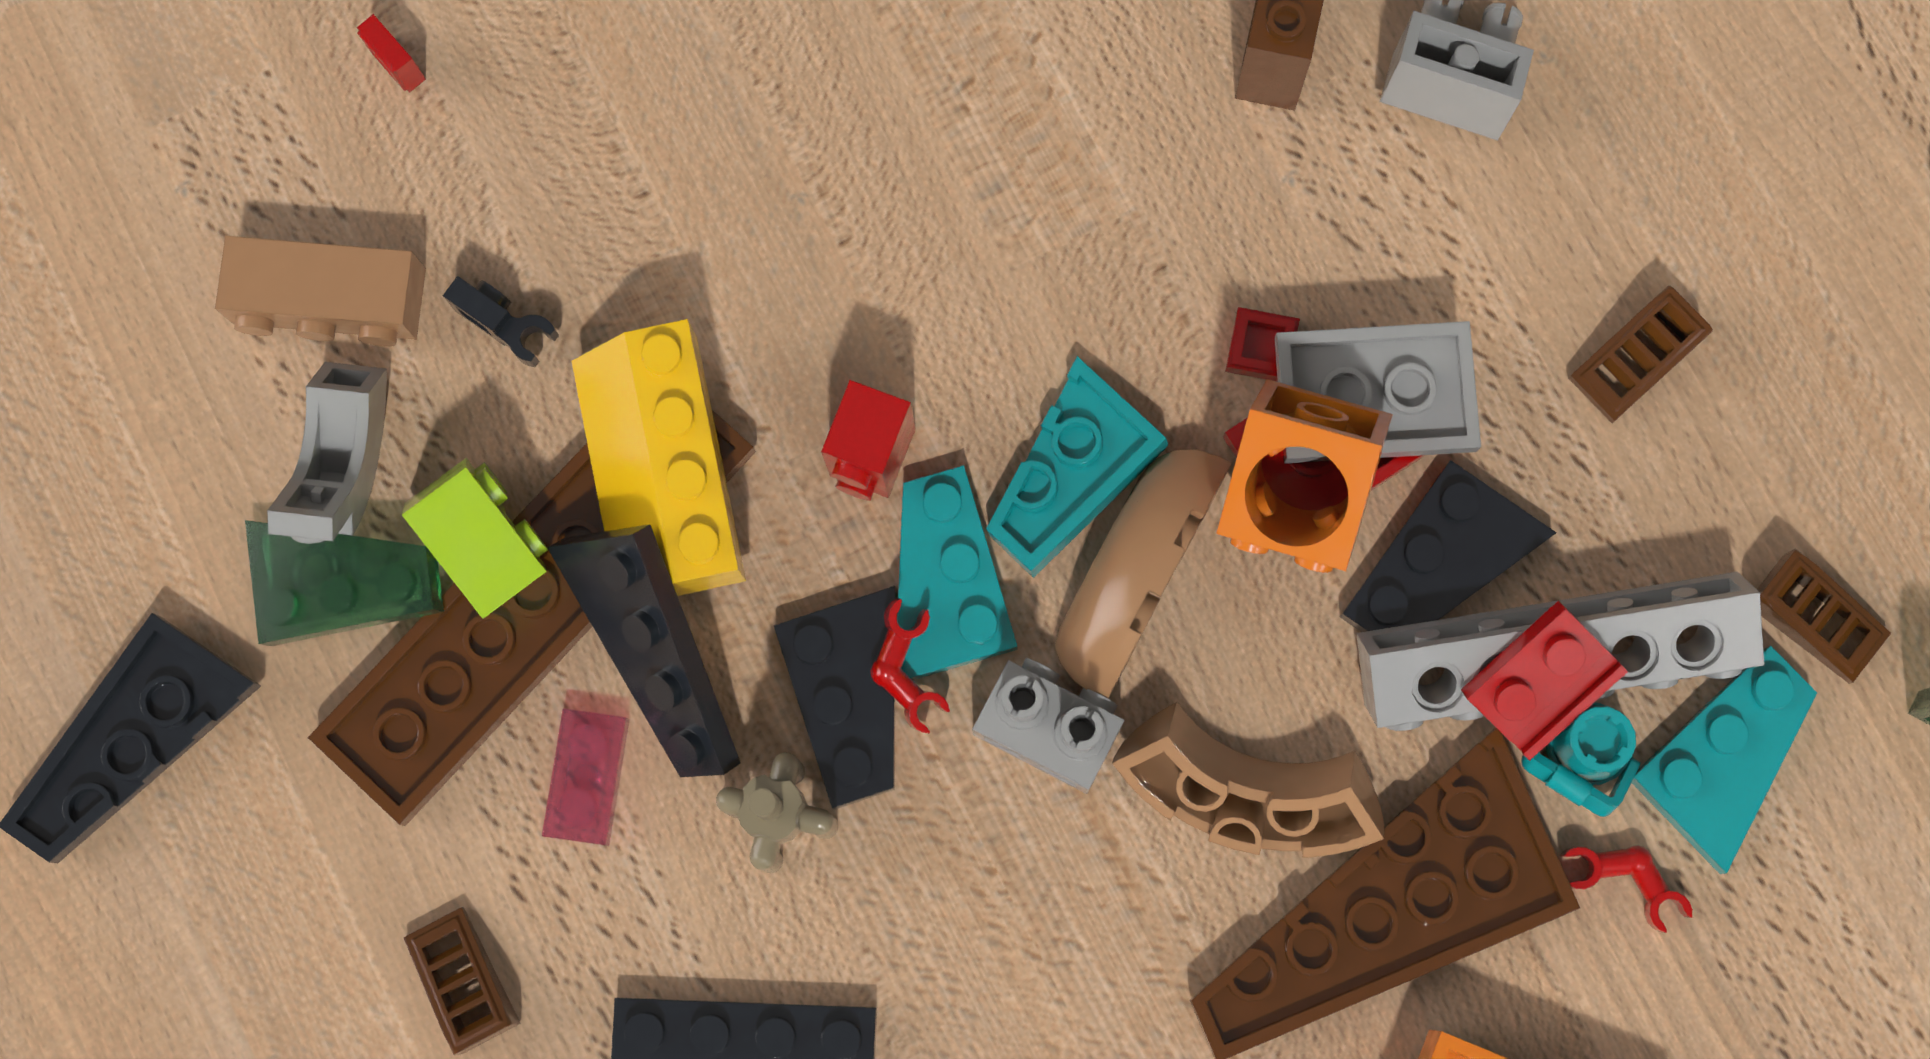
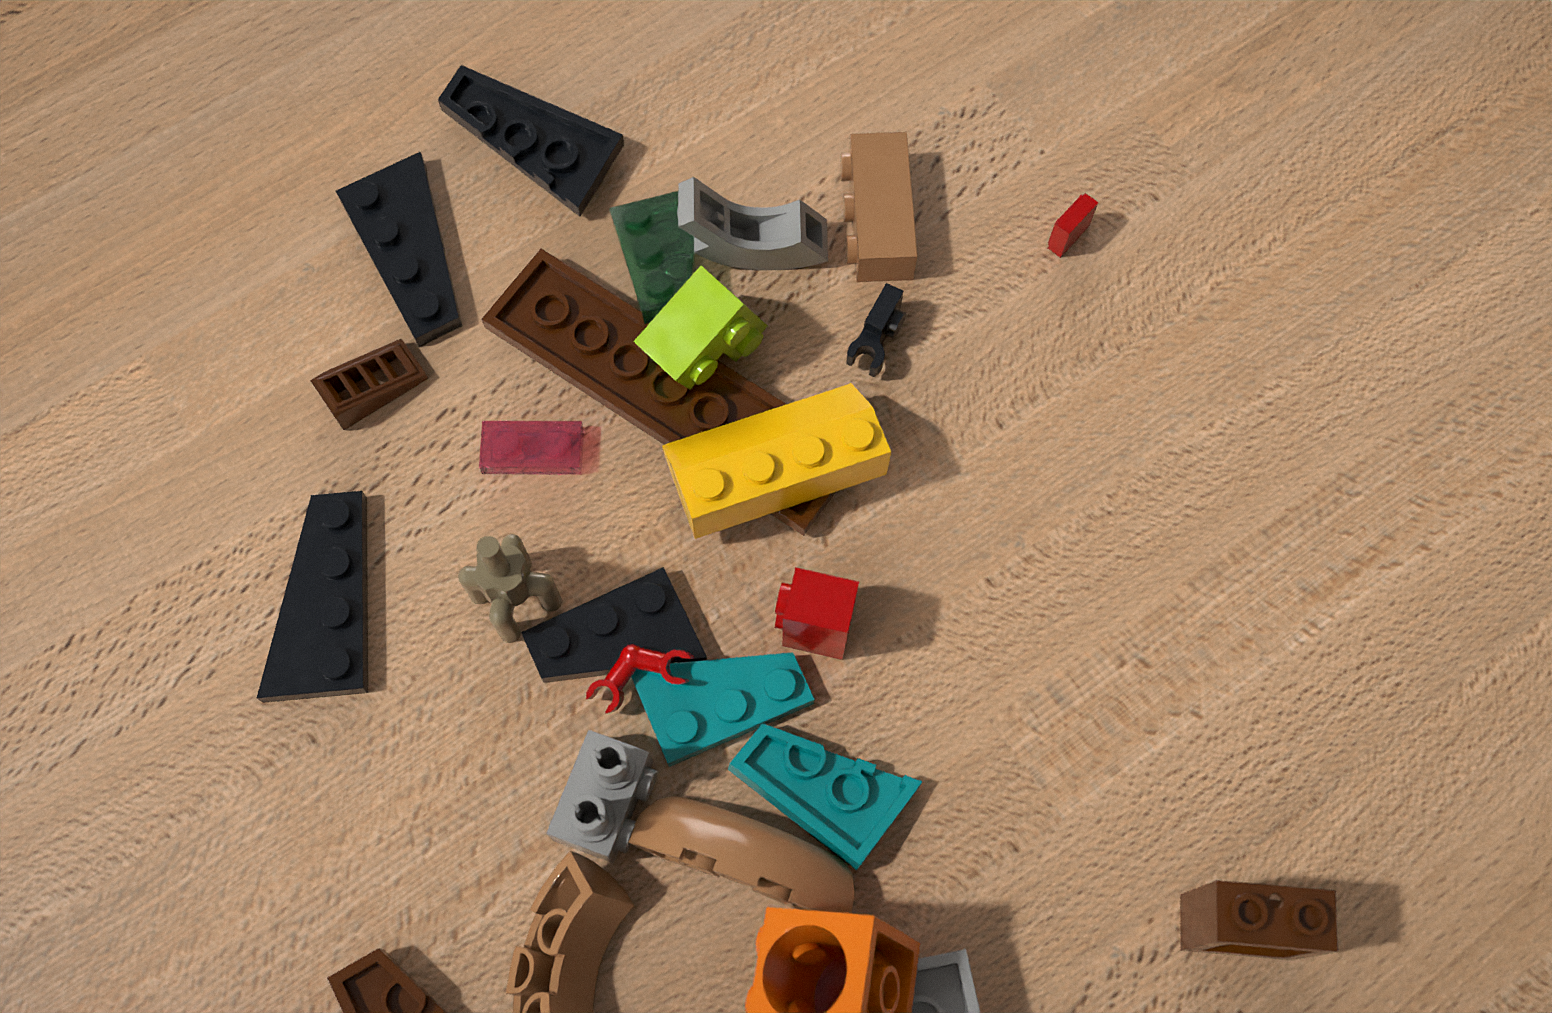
camera: 75 degrees right, 10 degrees down
(248, 928) = (402, 235): none -> black wing
(644, 629) = (640, 463): black wing -> none
(1253, 342) = (963, 932): red tile -> none

